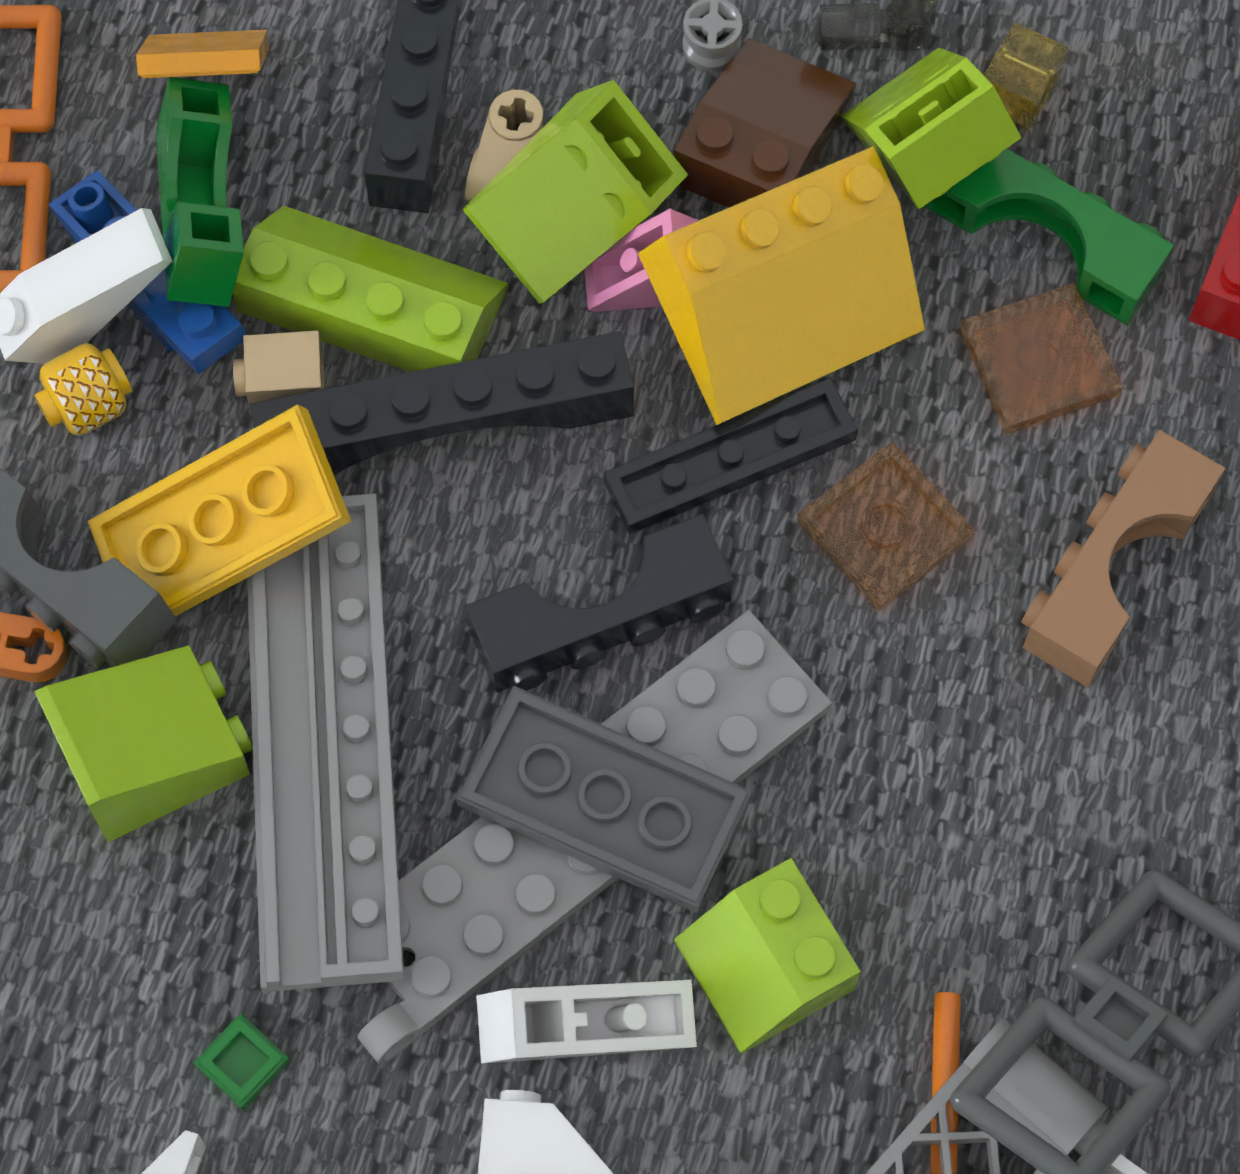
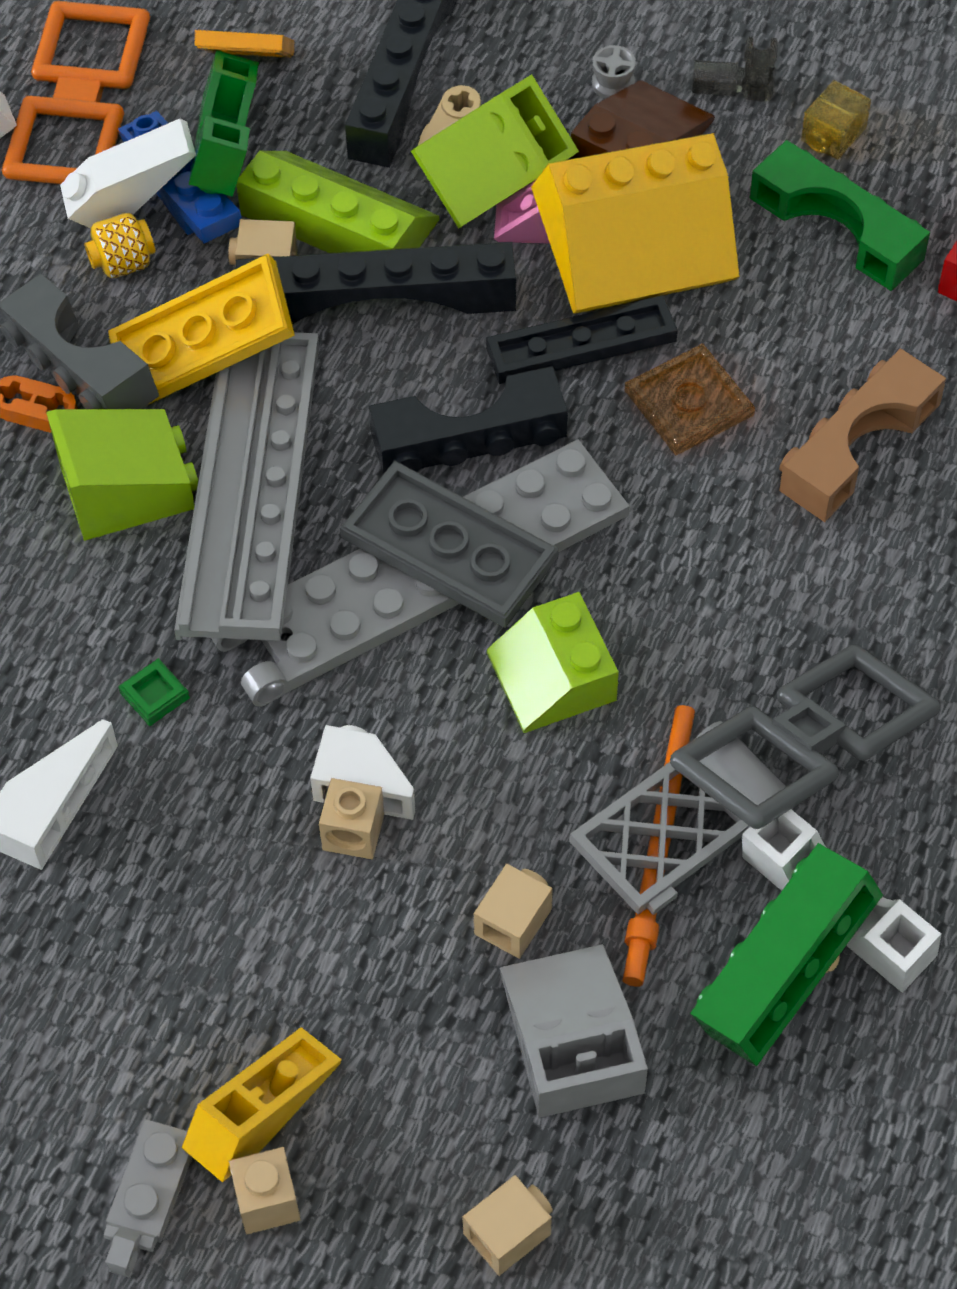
camera: 10 degrees right, 10 degrees down
(585, 1020) = (408, 689): white slope -> none
(934, 124) = (765, 133): lime slope -> none
(1040, 358) = (822, 303): clear orange tile -> none

